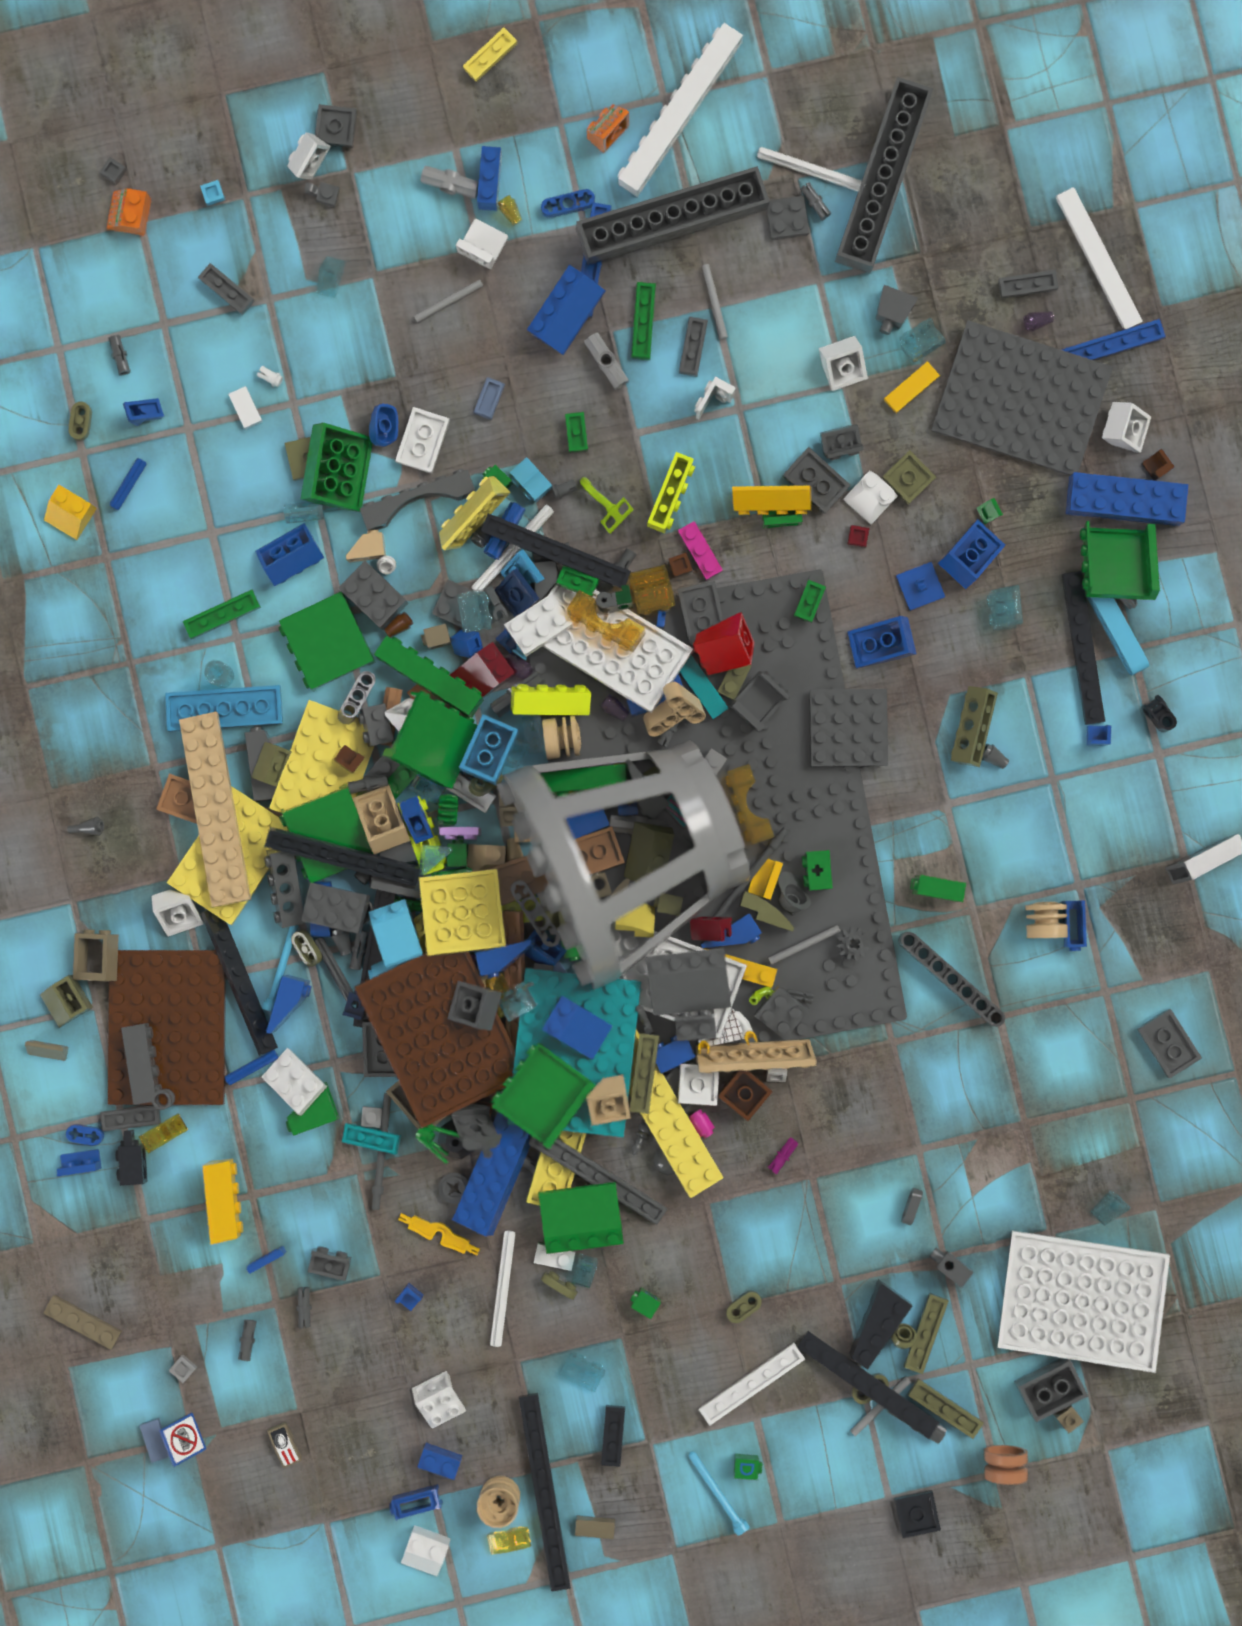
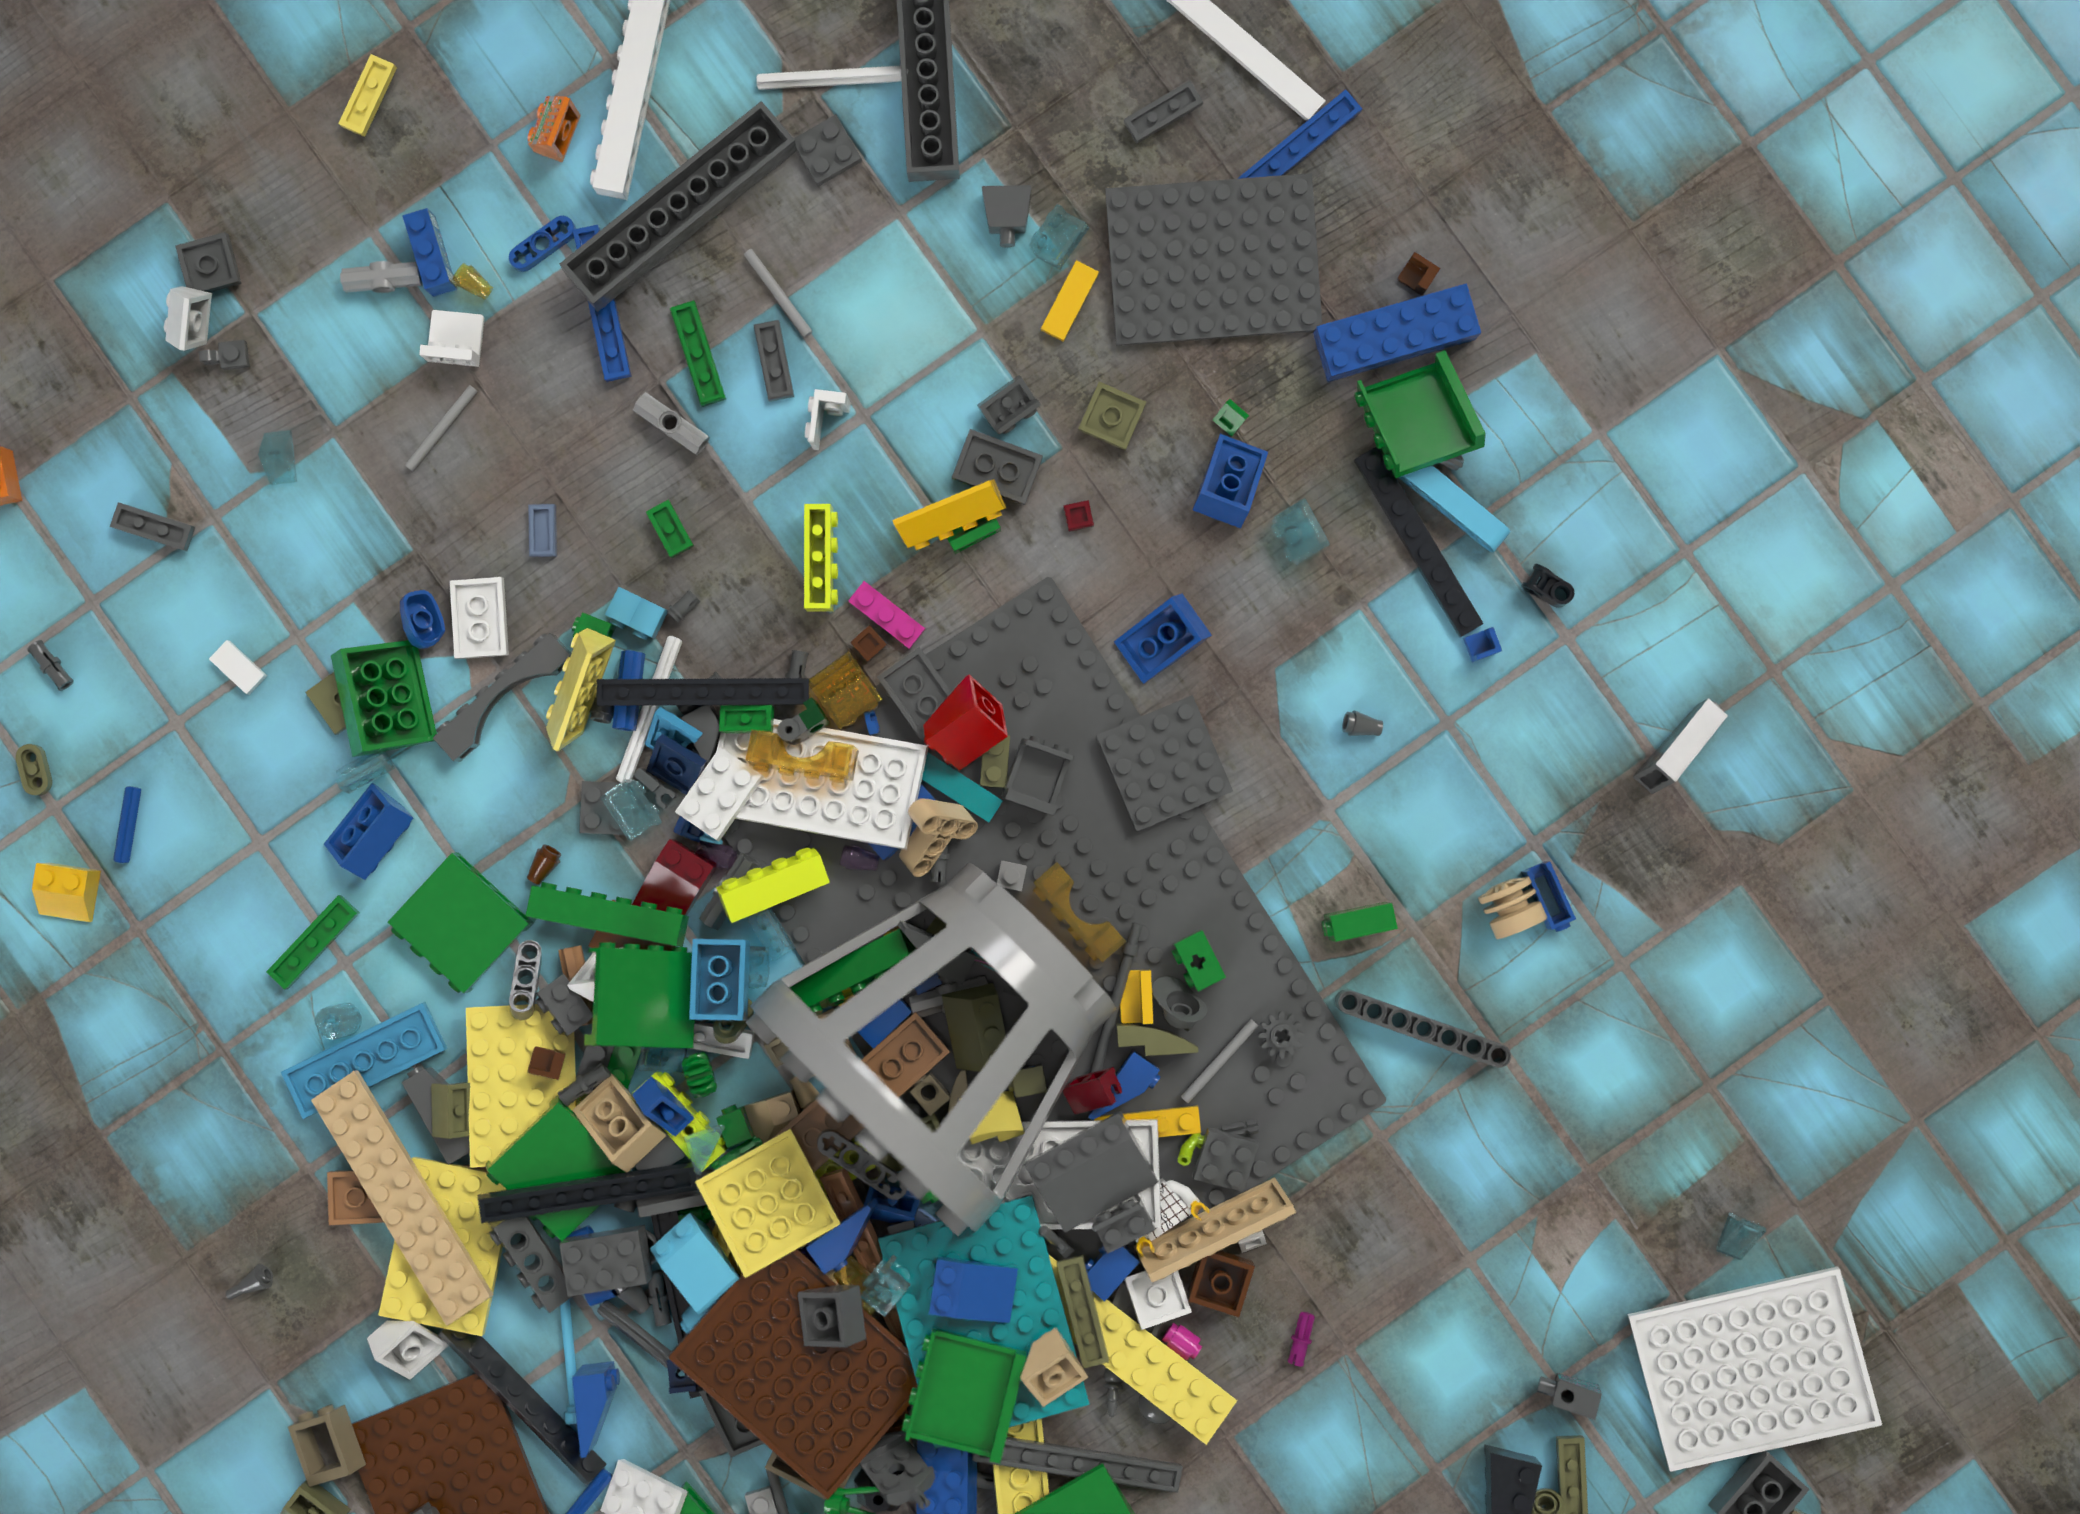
camera: 20 degrees left, 0 degrees up
(143, 410) = (108, 724): blue slope -> none
(212, 192) = (86, 411): medium azure plate -> none
(270, 376) = (253, 615): white pin -> none
(306, 948) = (591, 1323): olive plate -> none
(368, 547) = (464, 782): tan slope -> none
(373, 595) = (495, 840): dark grey brick -> none
(386, 564) = (496, 794): white plate -> none
(436, 637) = (597, 860): dark tan brick -> none
(466, 643) = (638, 853): blue panel -> none
(469, 833) = (717, 1102): lavender plate -> none
(561, 737) = (806, 925): tan wheel -> none
(566, 310) = (593, 380): blue slope -> none
(612, 509) = (753, 607): lime piece -> none
(810, 601) = (1050, 623): green plate -> none
(815, 201) = (853, 115): dark grey pin -> none
(843, 363) = (971, 305): white slope -> none
(870, 497) = (1074, 460): white slope -> none
(911, 1206) = (1489, 1337): dark grey beam -> none
(920, 586) = (1182, 546): blue piece -> none
(980, 719) = (1330, 706): olive brick -> none
(1036, 320) = (1193, 152): clear purple cone -> none
(1126, 426) = (1359, 241): white slope -> none
(1169, 1043) = (1729, 997): dark grey plate -> none

